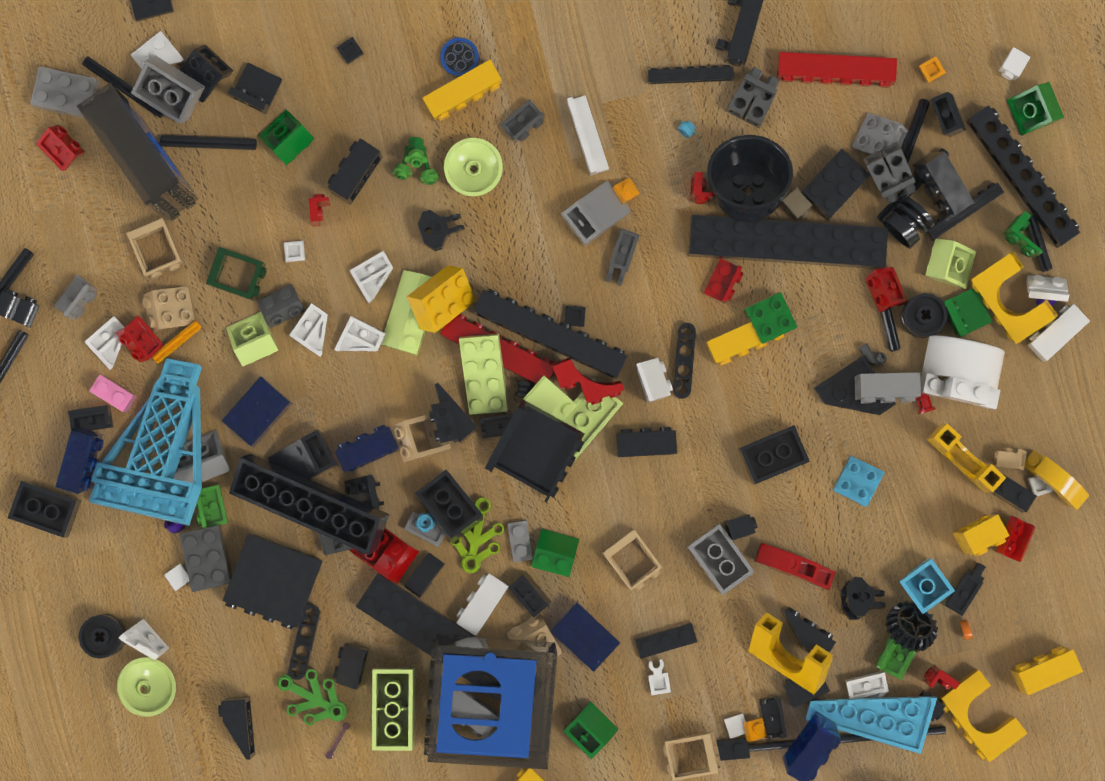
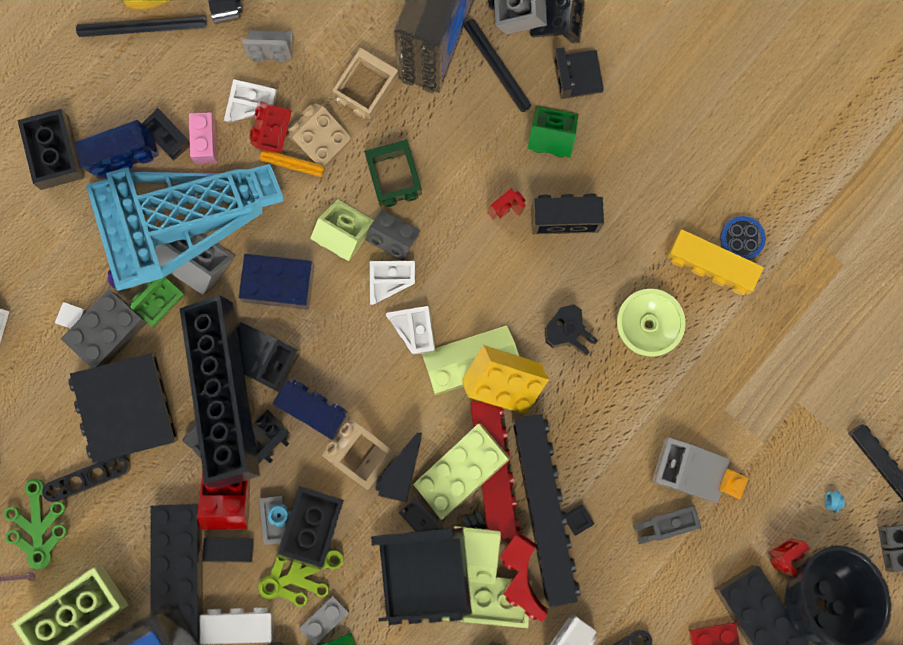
camera: 50 degrees right, 5 degrees down
(294, 251) = (452, 212): white tile -> none
(350, 50) = (674, 134): black tile -> none
(351, 665) = (90, 541): black slope -> none
(372, 275) = (481, 299): white wing -> none
(415, 155) = (623, 261): bright green plant -> none
(445, 422) = (391, 463): black bracket -> none
(522, 121) = (727, 339): dark grey bracket -> none
(587, 135) = (758, 409): white fence -> none

